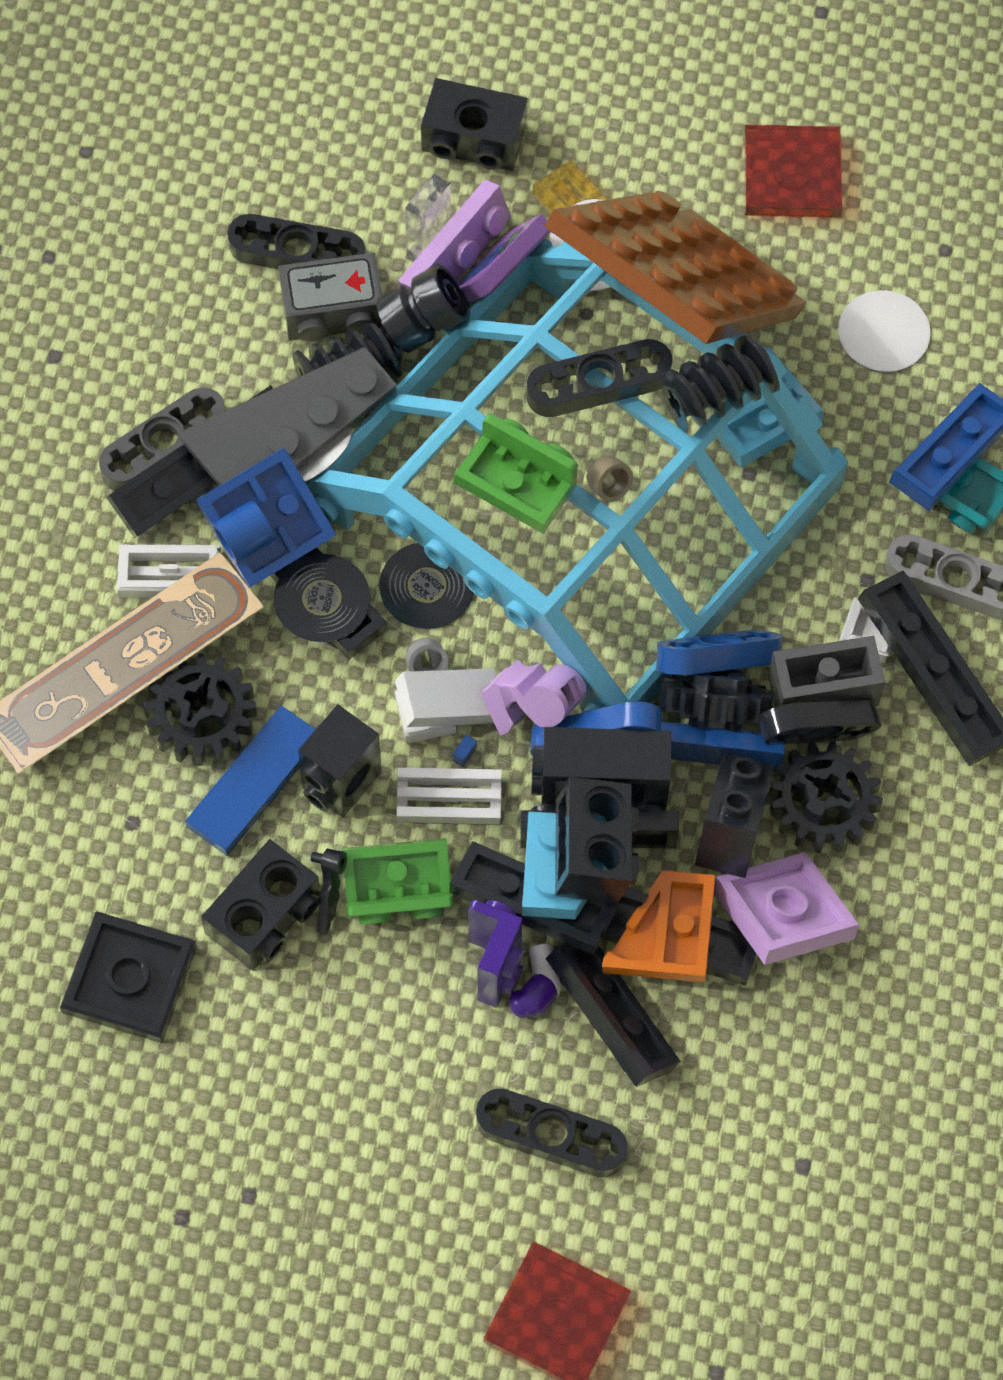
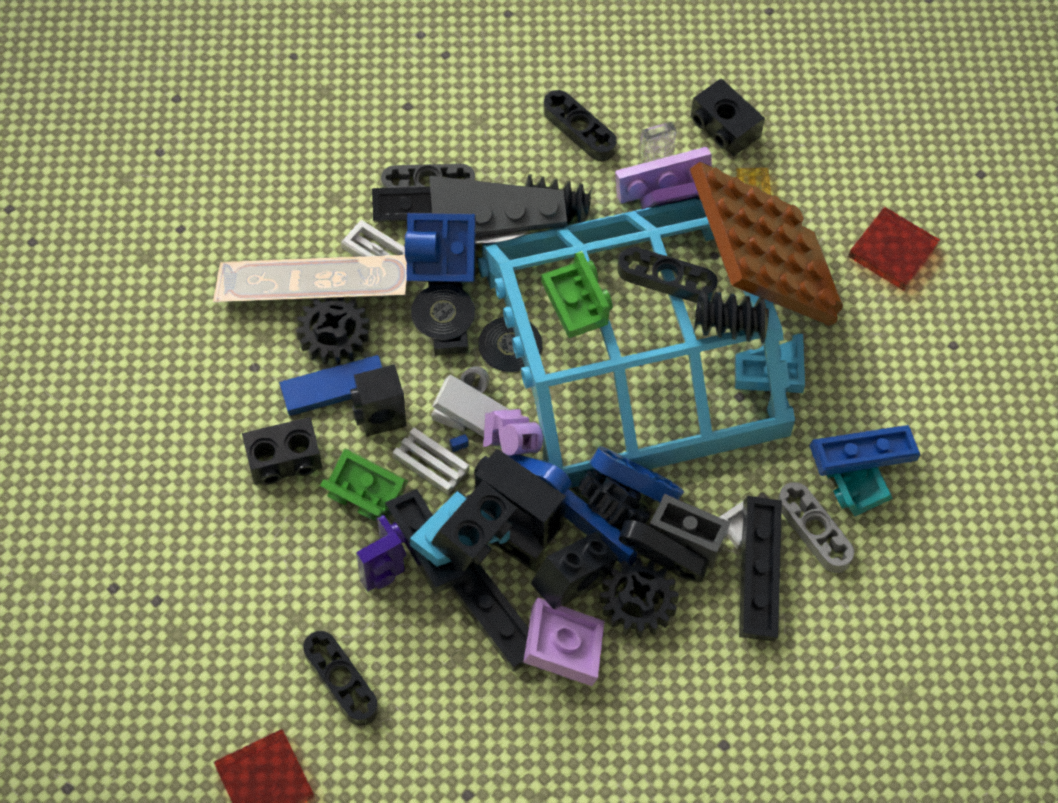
camera: 35 degrees right, 5 degrees down
(128, 977) = (186, 444): black tile -> none
(330, 296) = (575, 159): brick -> none
(332, 864) = (323, 470): black piece -> none
(428, 306) = (615, 191): black wheel -> none
(540, 989) = (398, 596): dark purple arm -> none
(614, 1014) = (425, 636): black plate -> none
(619, 473) = (620, 333): dark tan hinge -> none
(669, 931) = (487, 608): orange wing -> none
(884, 331) = (881, 367): white sticker -> none

